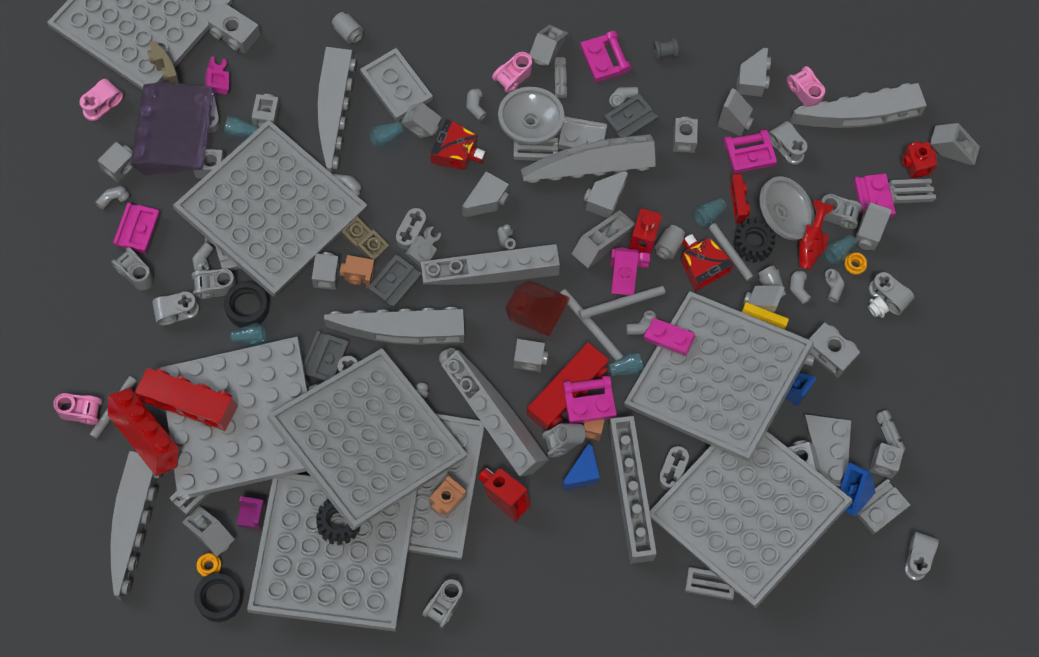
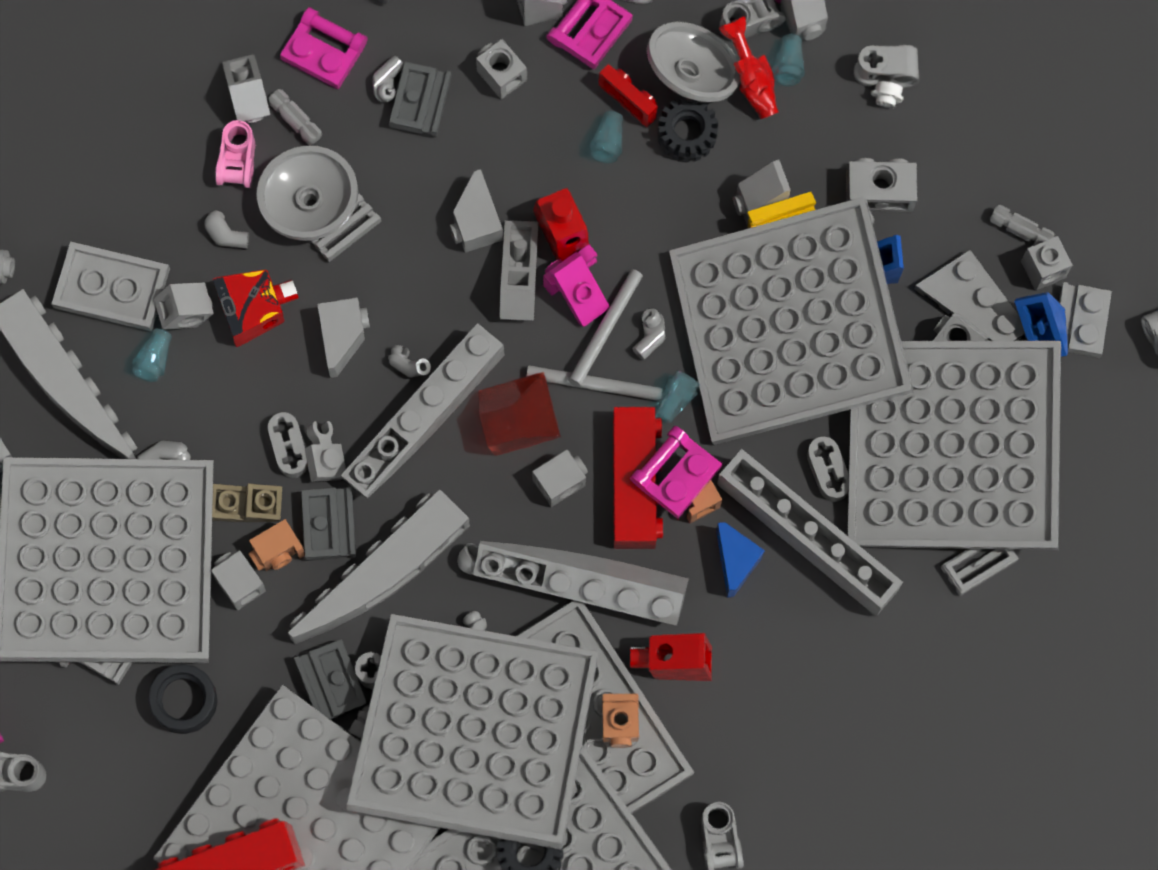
camera: 40 degrees left, 5 degrees up
(173, 308) = (99, 779): light grey piece -> none
(200, 258) = (76, 693): light grey arm -> none
(208, 283) = (117, 709): light grey piece -> none
(251, 334) = (219, 730): clear light blue cone -> none
(563, 438) = (685, 539): light grey piece -> none
(578, 132) = (385, 167): light grey plate -> none
(595, 159) = (424, 184): light grey slope -> none
(669, 242) = (597, 211): light grey brick -> none
(669, 337) = (696, 323): dark pink plate -> none
(704, 262) = (654, 202): red torso -> none
(731, 252) = (672, 165): light grey bar -> none
(771, 277) = (745, 159): light grey cone -> none
(797, 286) = (780, 144): light grey arm -> none
(835, 283) = (819, 105): light grey arm -> none
(858, 258) = (819, 54): light orange plate -> none

